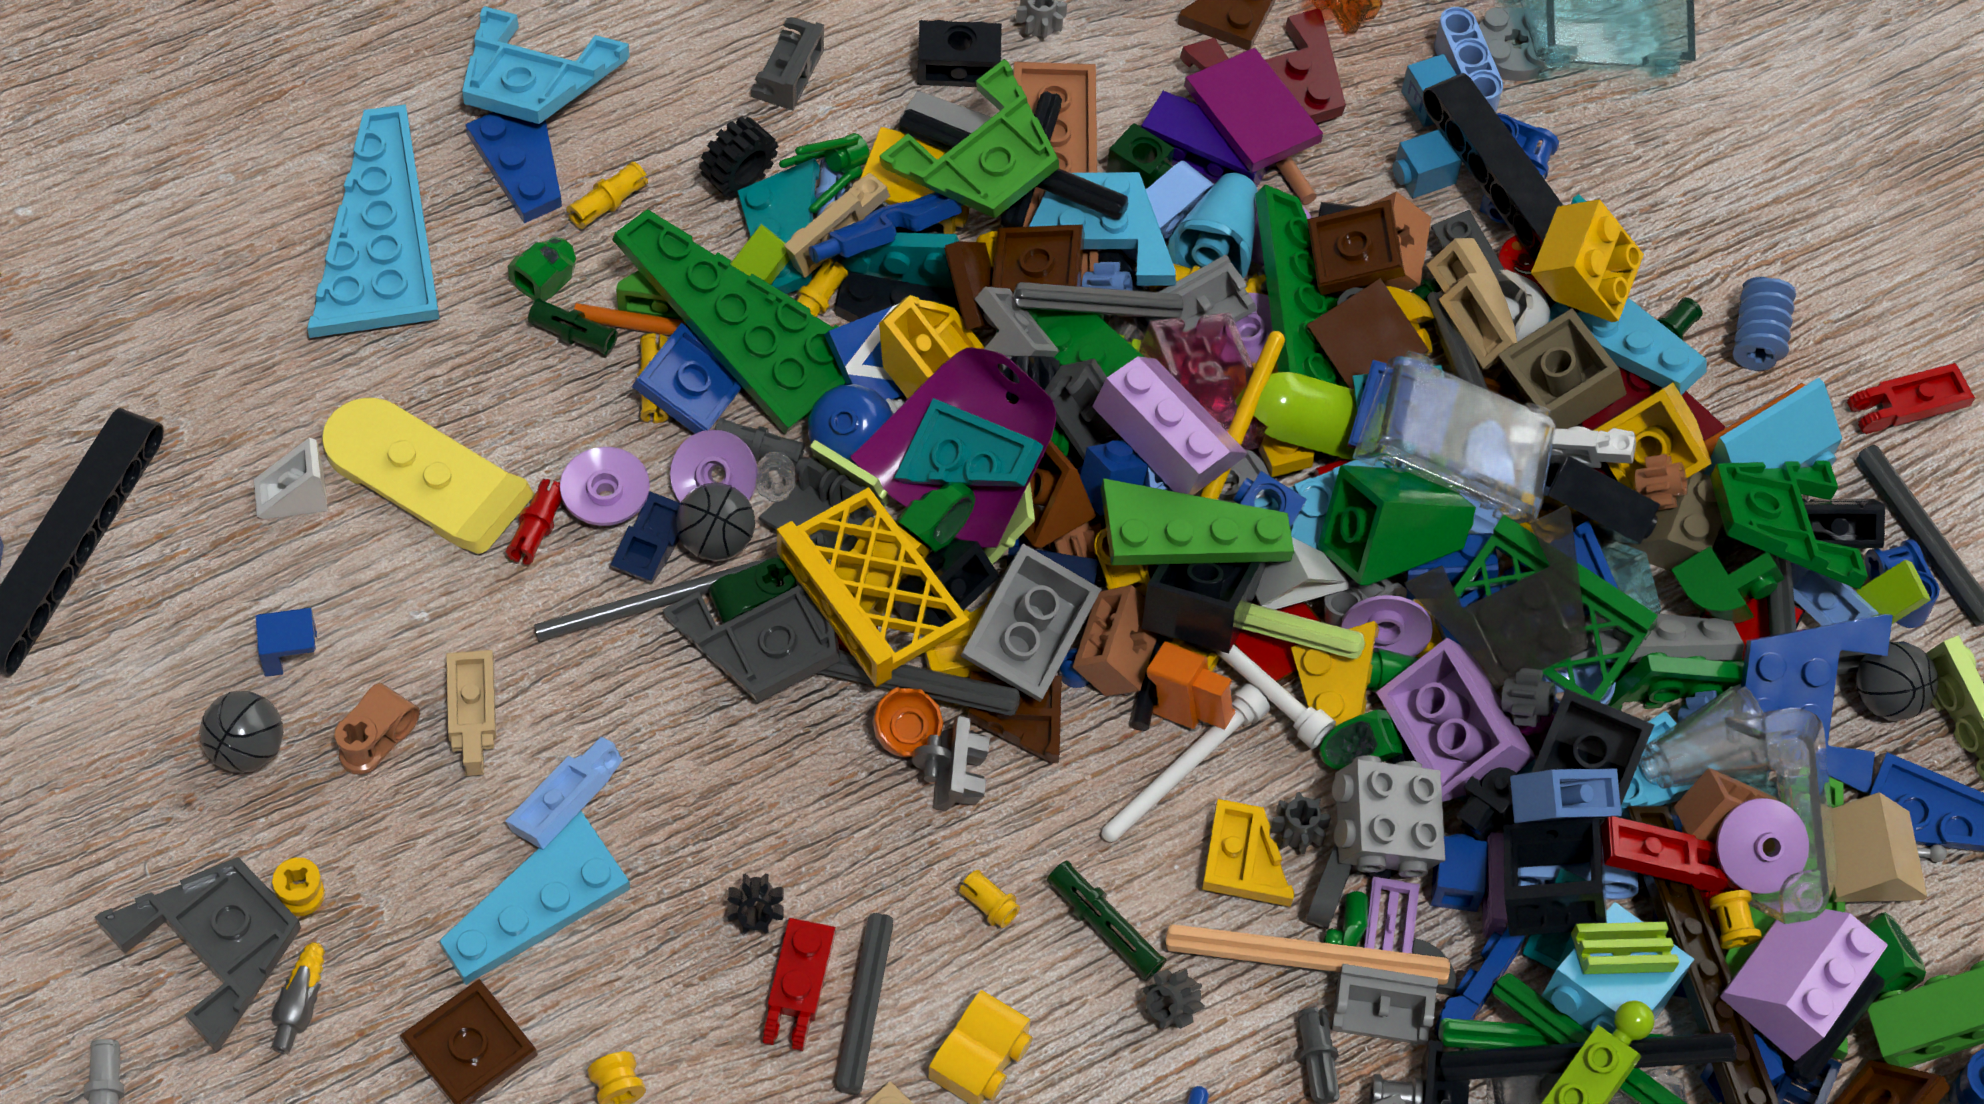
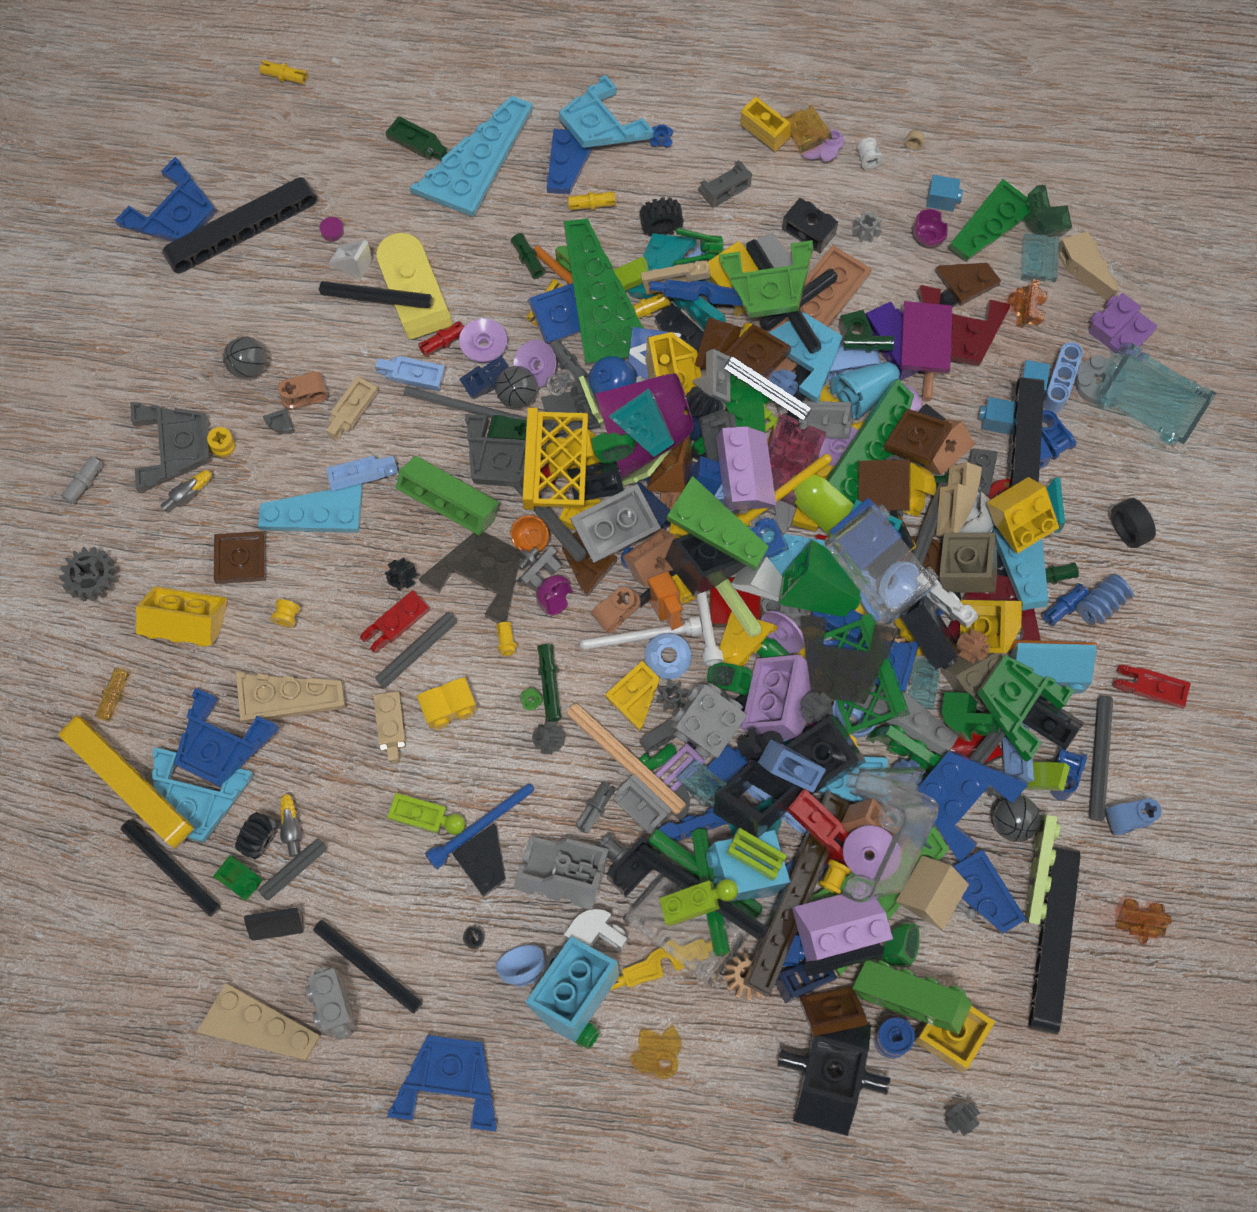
camera: 40 degrees right, 10 degrees up
(222, 462) = (331, 229): none -> magenta tile
(259, 254) = (416, 139): none -> dark green hinge
(284, 635) = (294, 325): blue panel -> none
(369, 800) = (279, 422): none -> dark grey tile
(378, 515) = (375, 294): none -> black axle
(527, 598) = (412, 372): none -> light blue hinge
(543, 268) = (536, 219): green rock -> none
(644, 41) = (665, 132): none -> blue plate
(734, 742) = (447, 495): none -> bright green brick
(869, 809) = (484, 562): none -> clear smoke wing
(1007, 787) = (552, 594): none -> magenta hair
(1097, 961) = (532, 704): none -> bright green hinge
(1117, 755) = (614, 611): none -> nougat piece
(1182, 161) = (868, 342): none -> dark green pin
(1229, 780) = (658, 666): none -> light blue piece
(1231, 44) = (948, 298): none -> black hinge
(1450, 915) = (700, 783): none -> clear light blue slope
(1719, 361) = (1065, 604): none -> blue pin
(1728, 180) = (1133, 522): none -> black tyre

